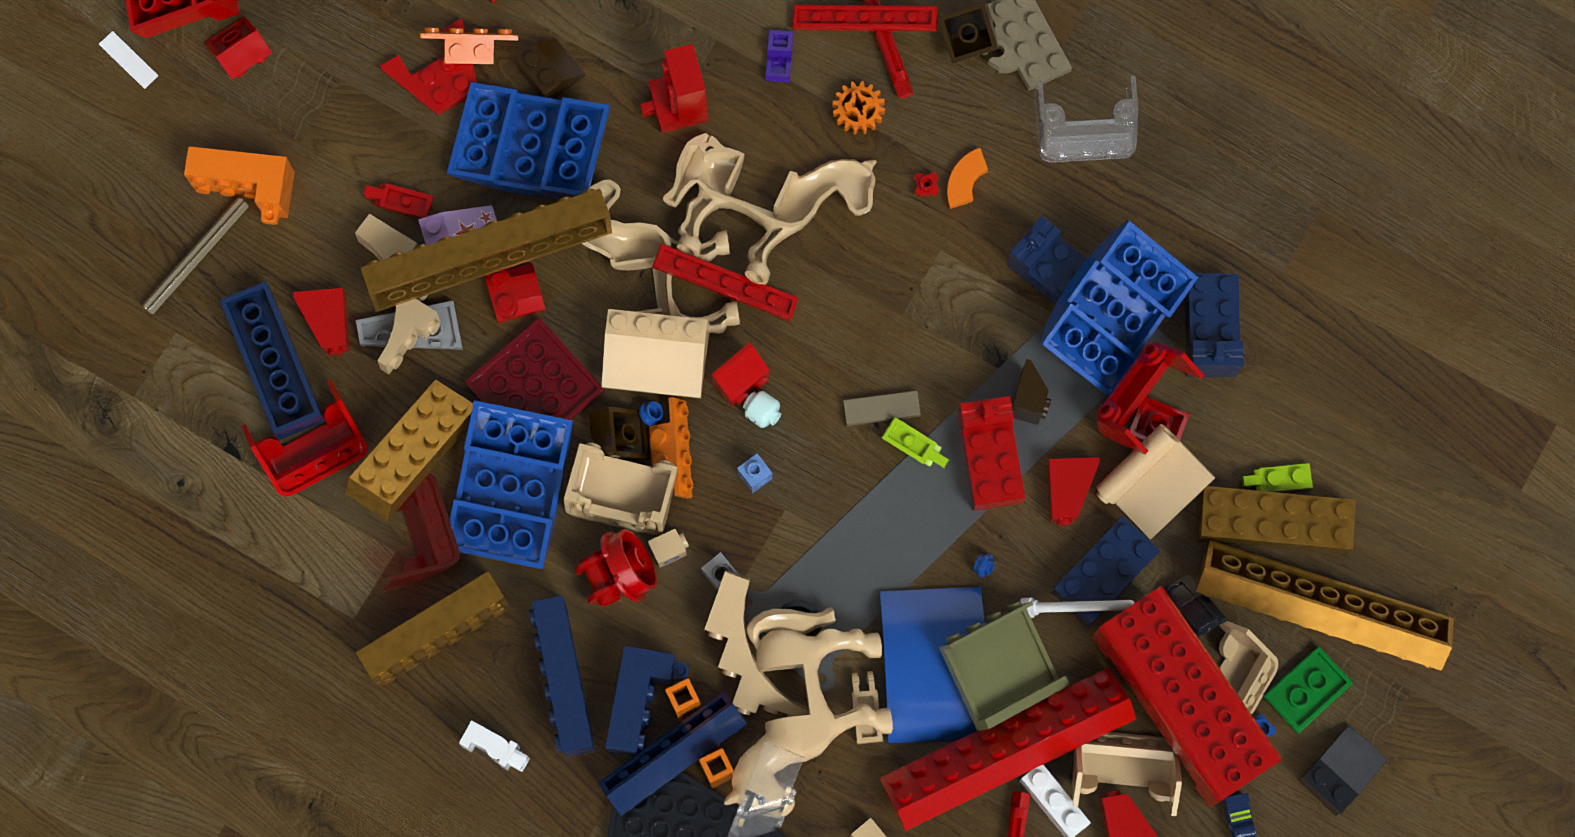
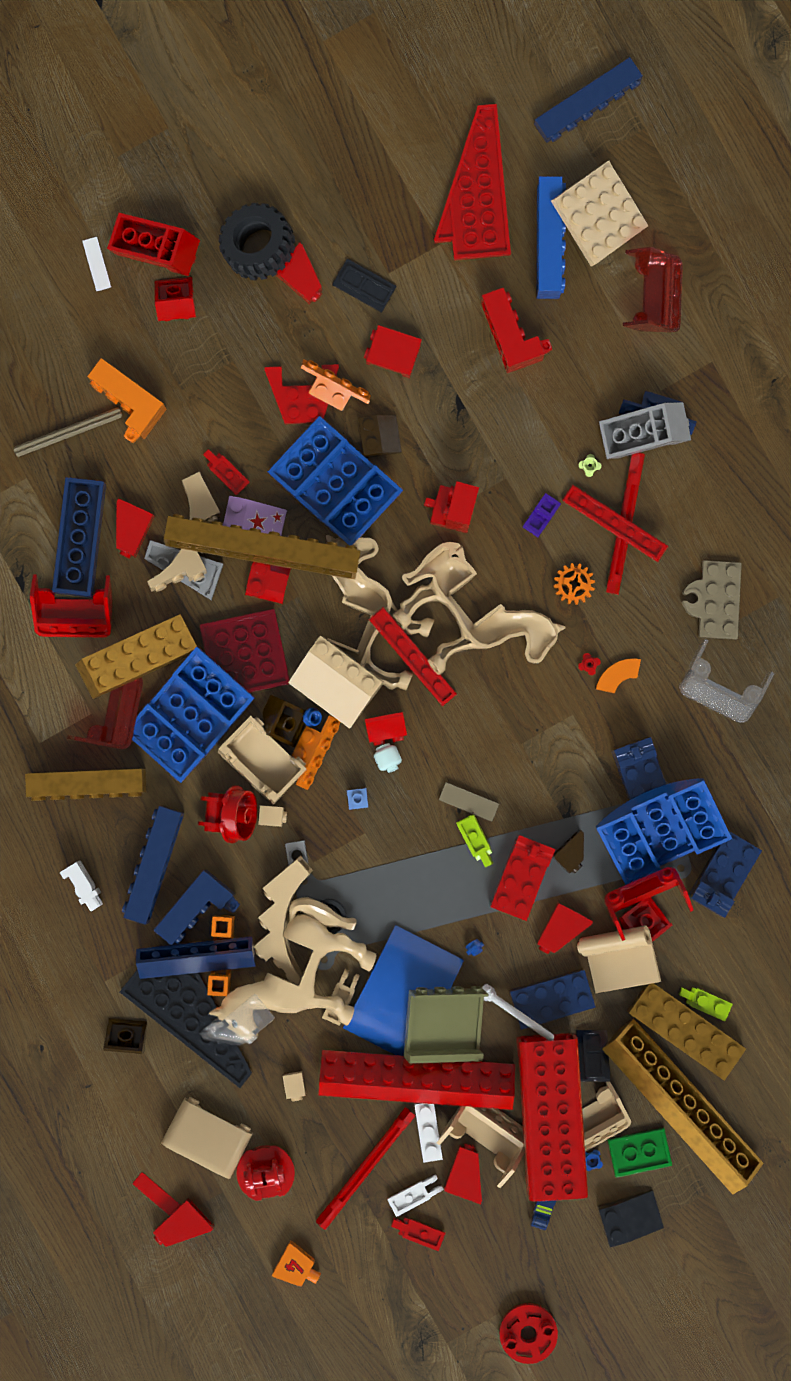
camera: 30 degrees right, 10 degrees up
(969, 32) = (680, 575): dark brown slope -> none

